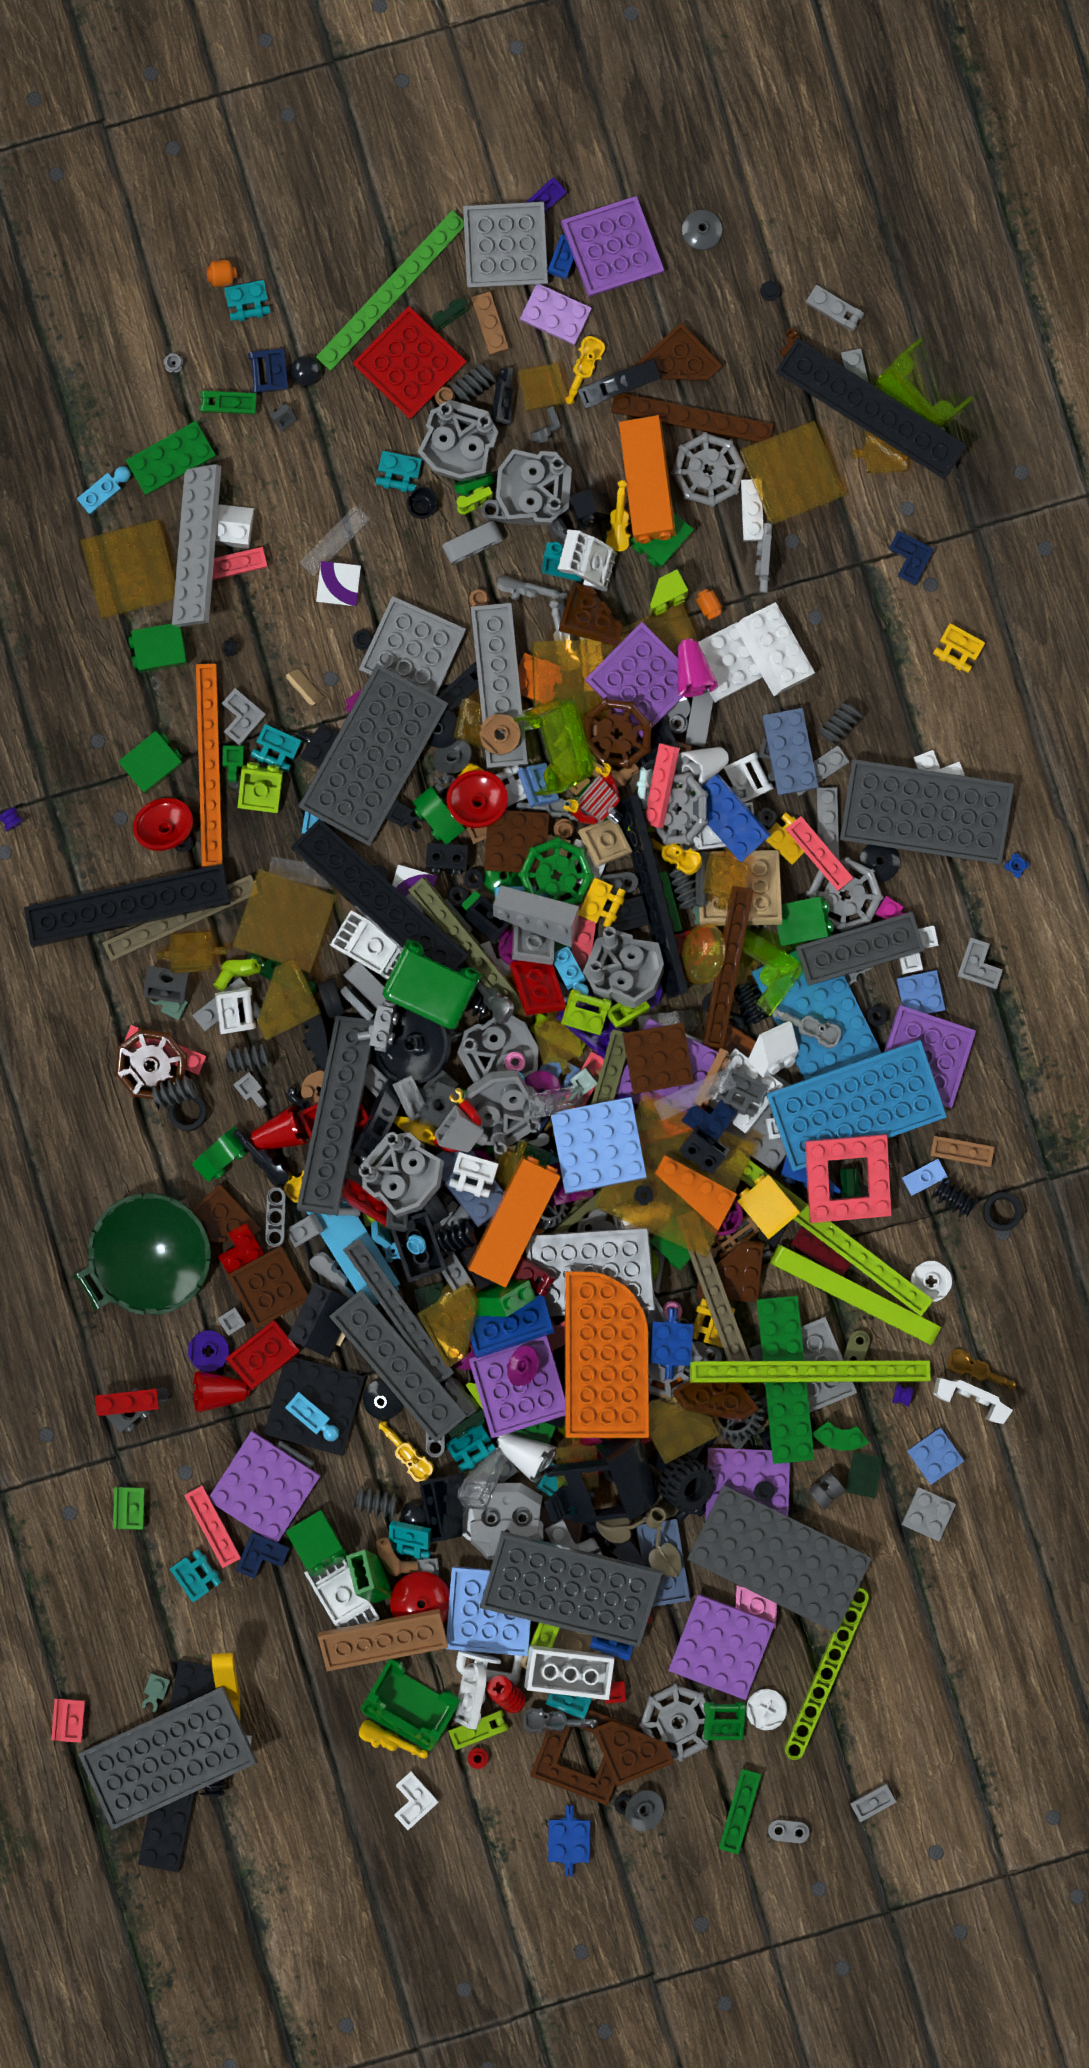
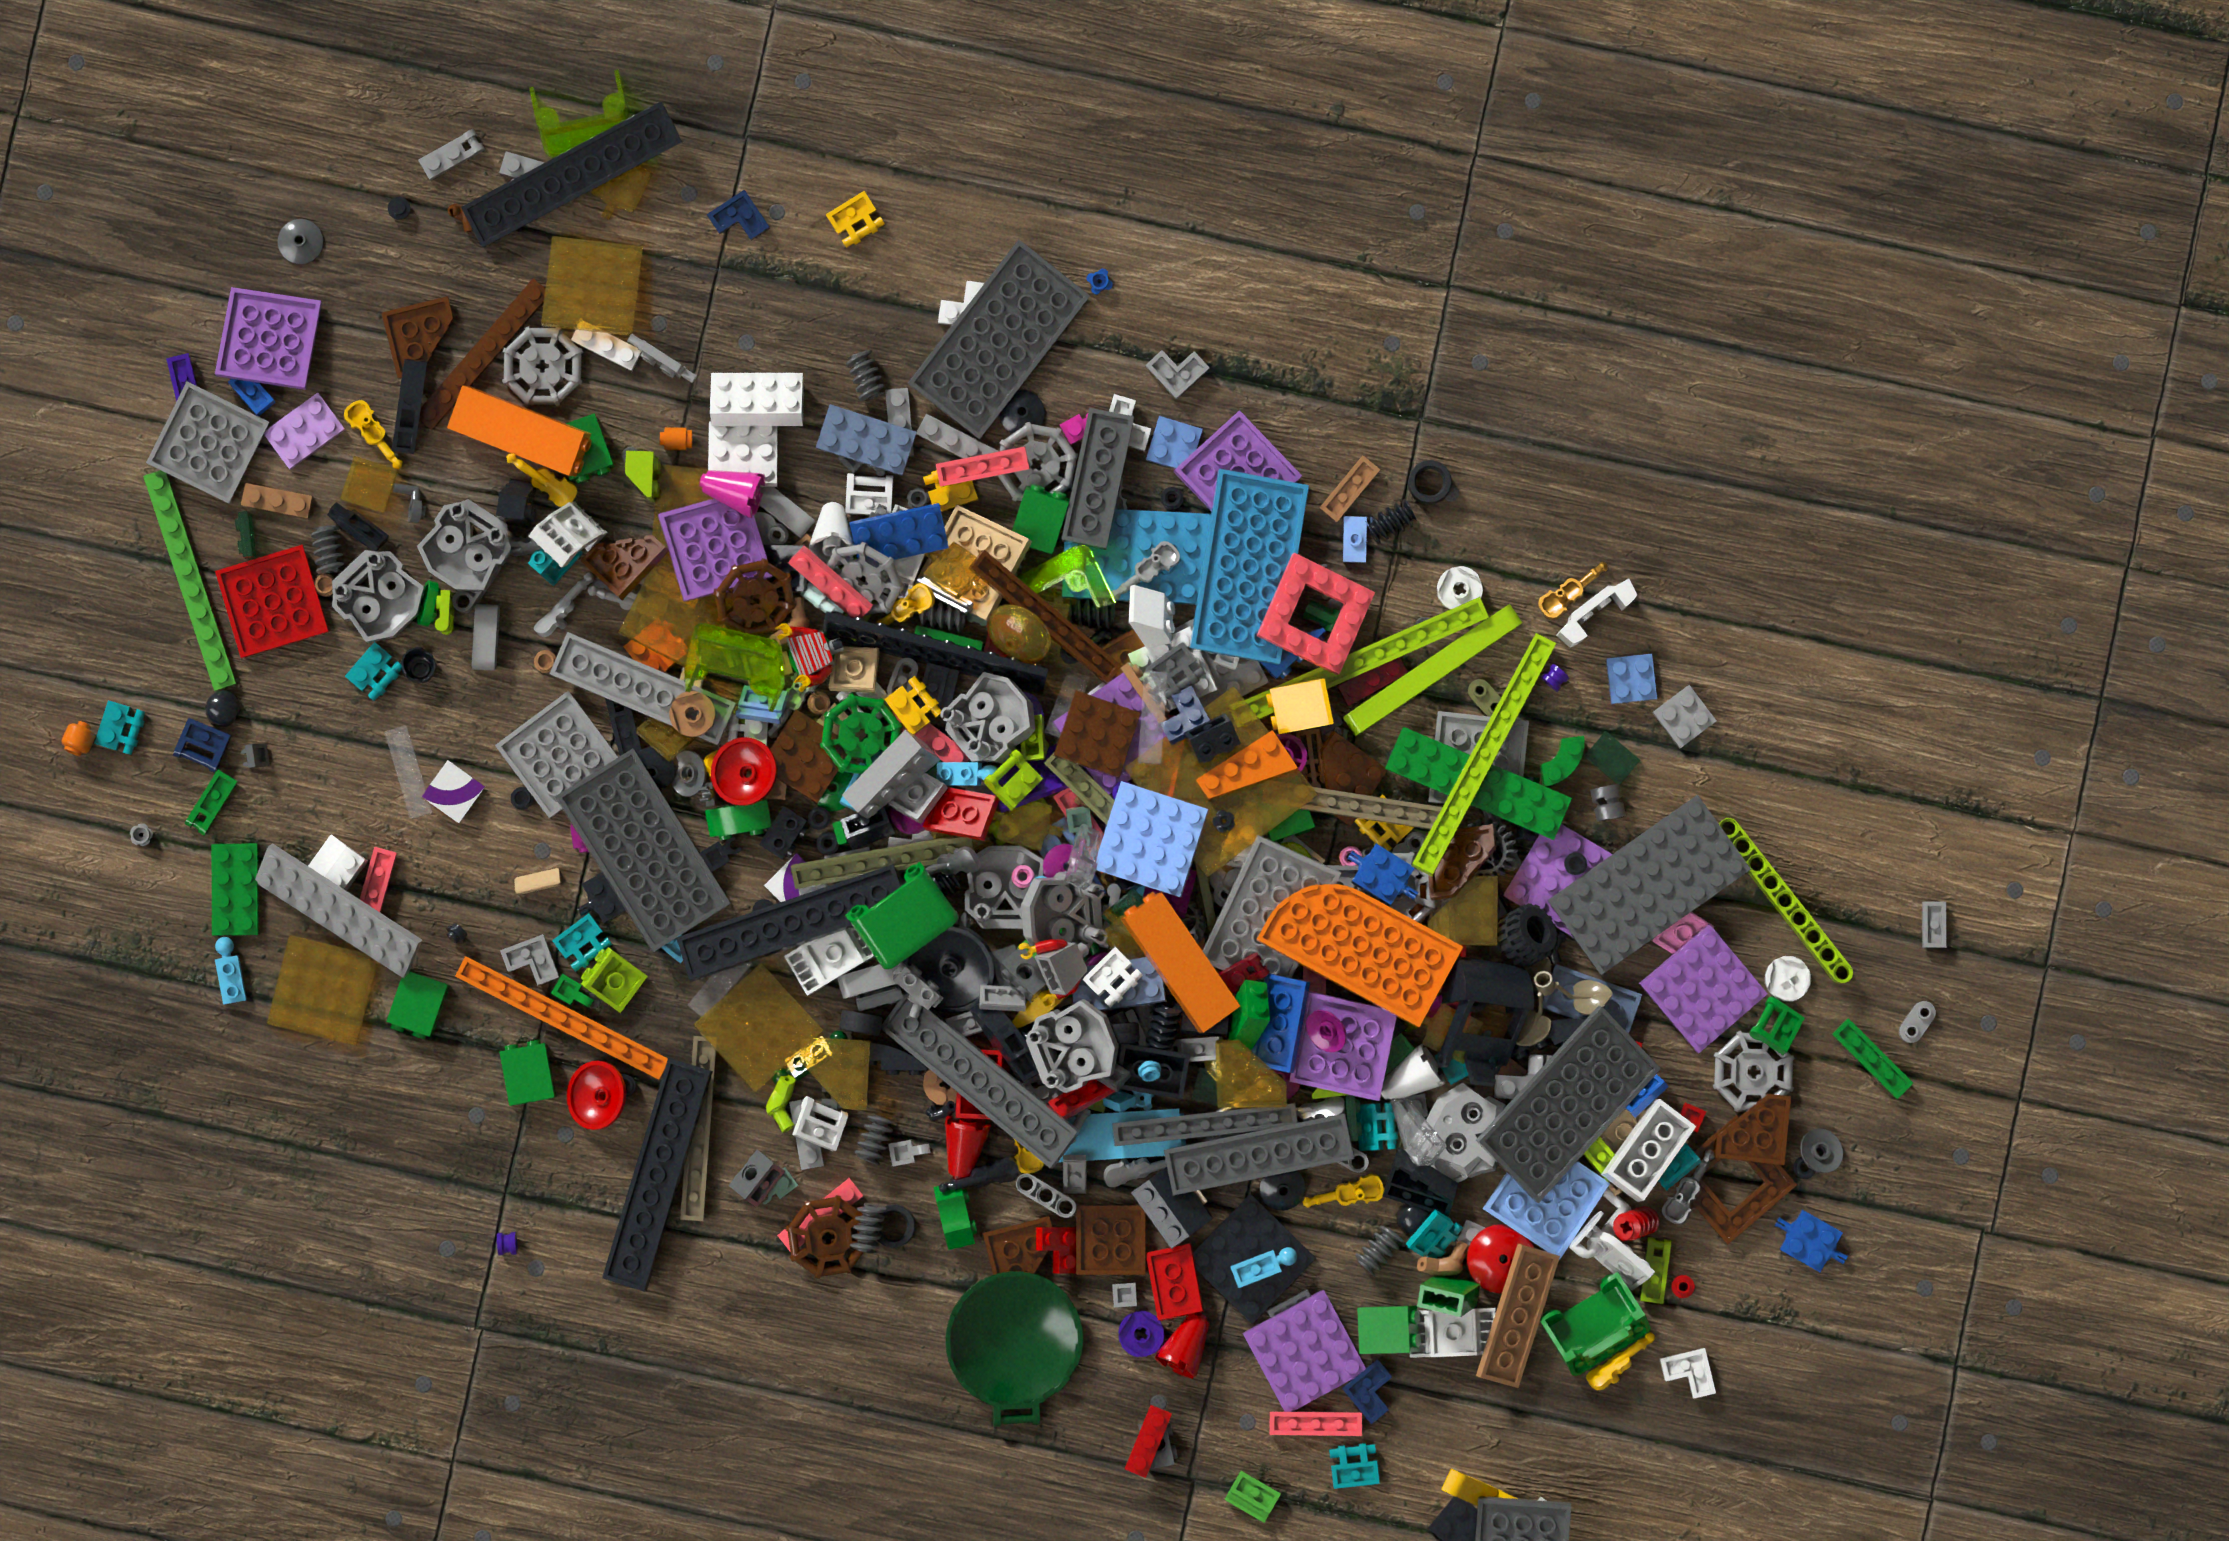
camera: 60 degrees left, 0 degrees up
(191, 952) = (738, 1136): clear yellow plate -> none

